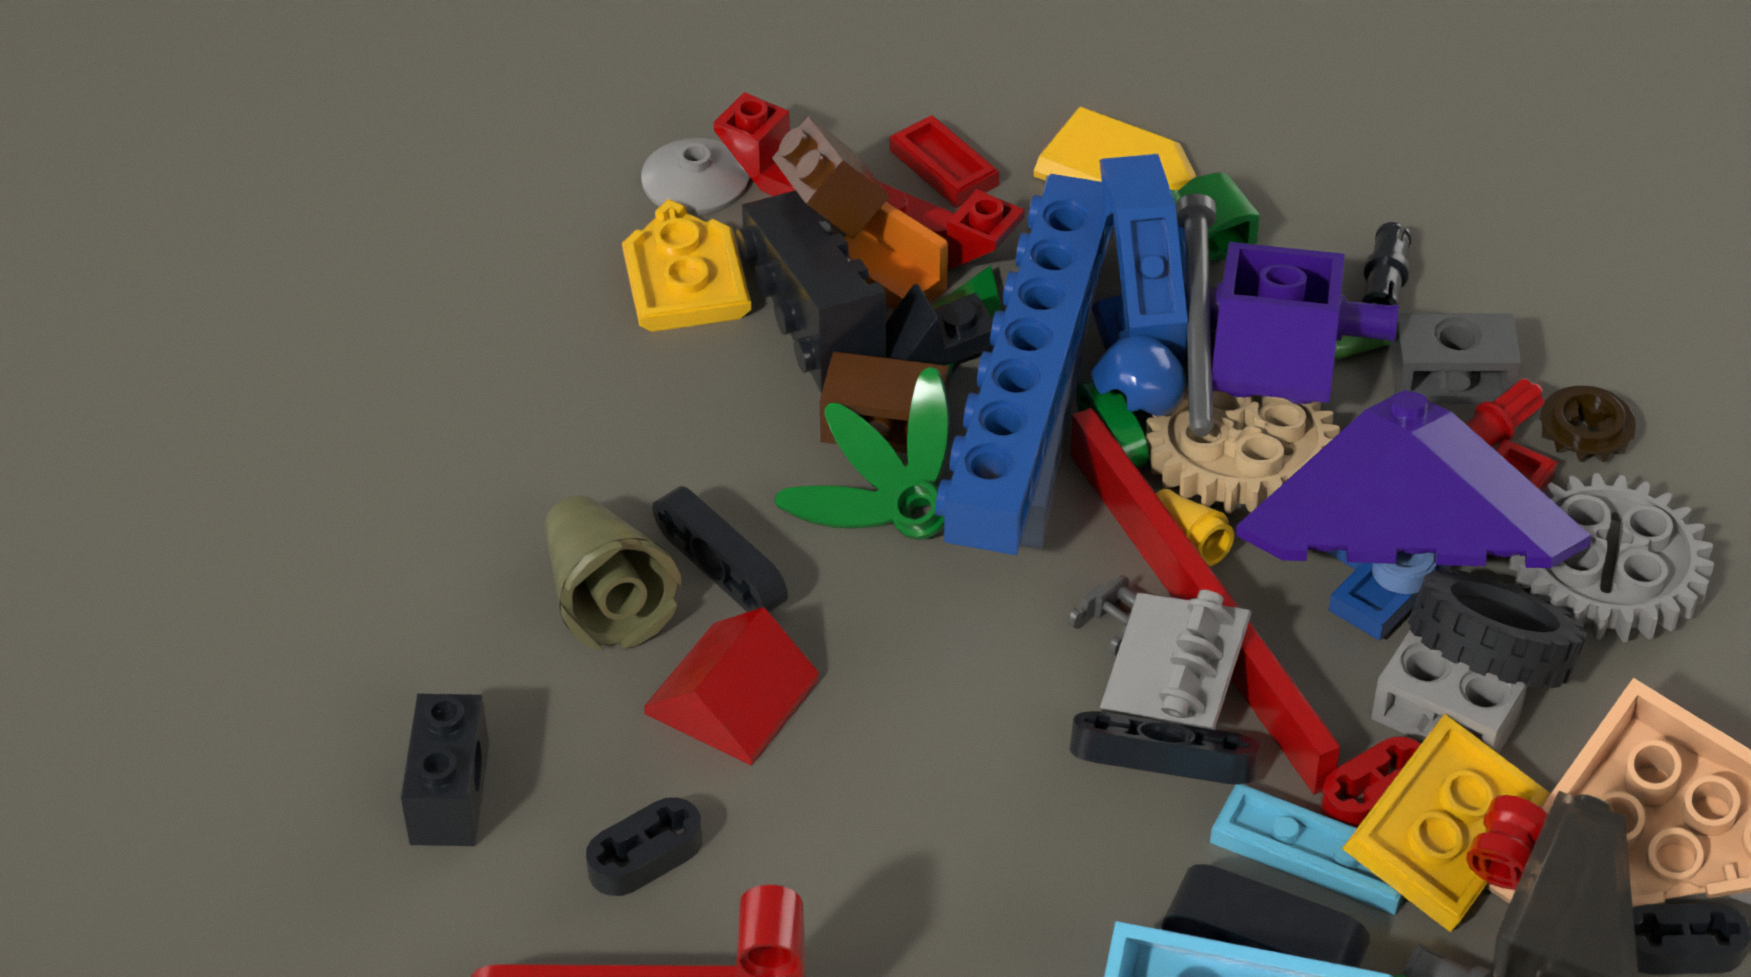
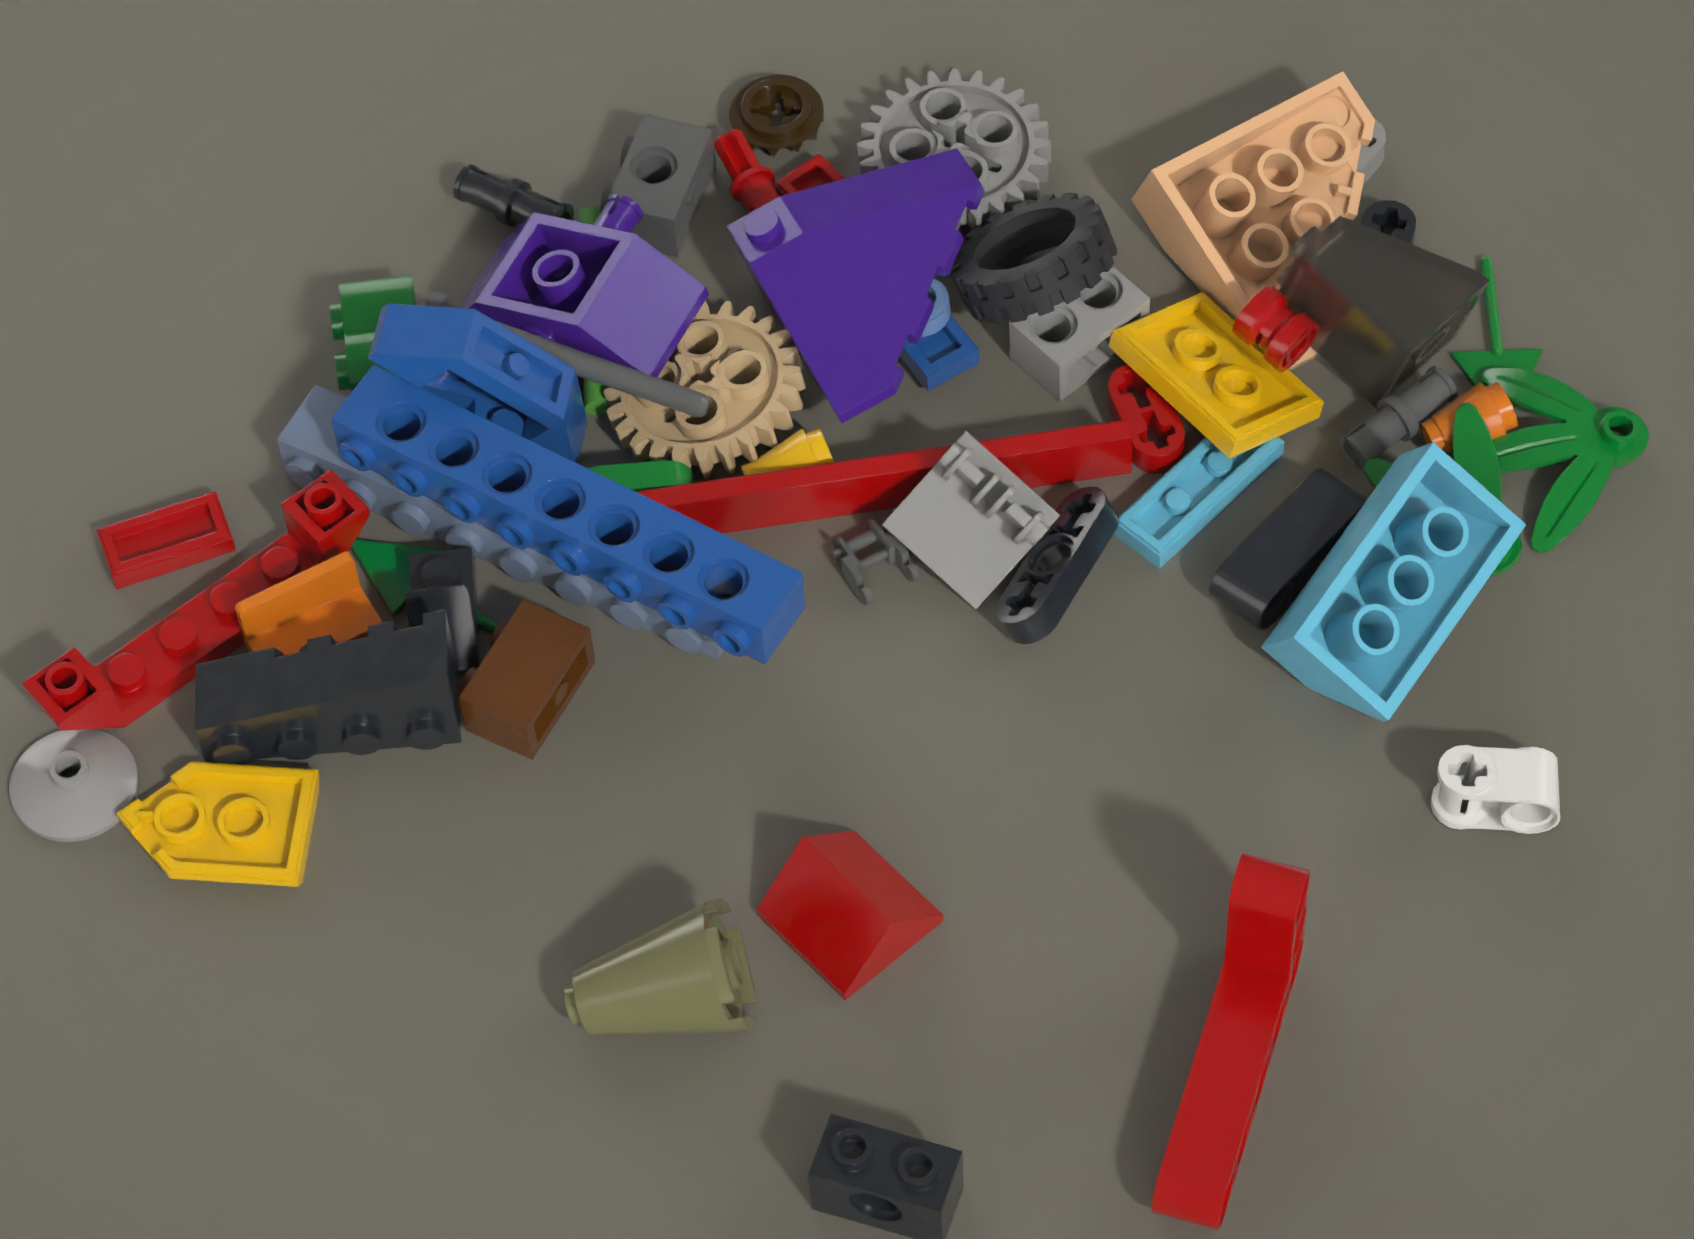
camera: 70 degrees left, 10 degrees up
(644, 846) = (1012, 1034): black beam -> none
(719, 550) = (673, 876): black beam -> none
(830, 177) = (219, 626): reddish brown brick -> none
(899, 486) = (614, 703): green plant -> none
(1095, 136) = (242, 384): yellow tile -> none
(1144, 372) = (611, 433): blue hair -> none

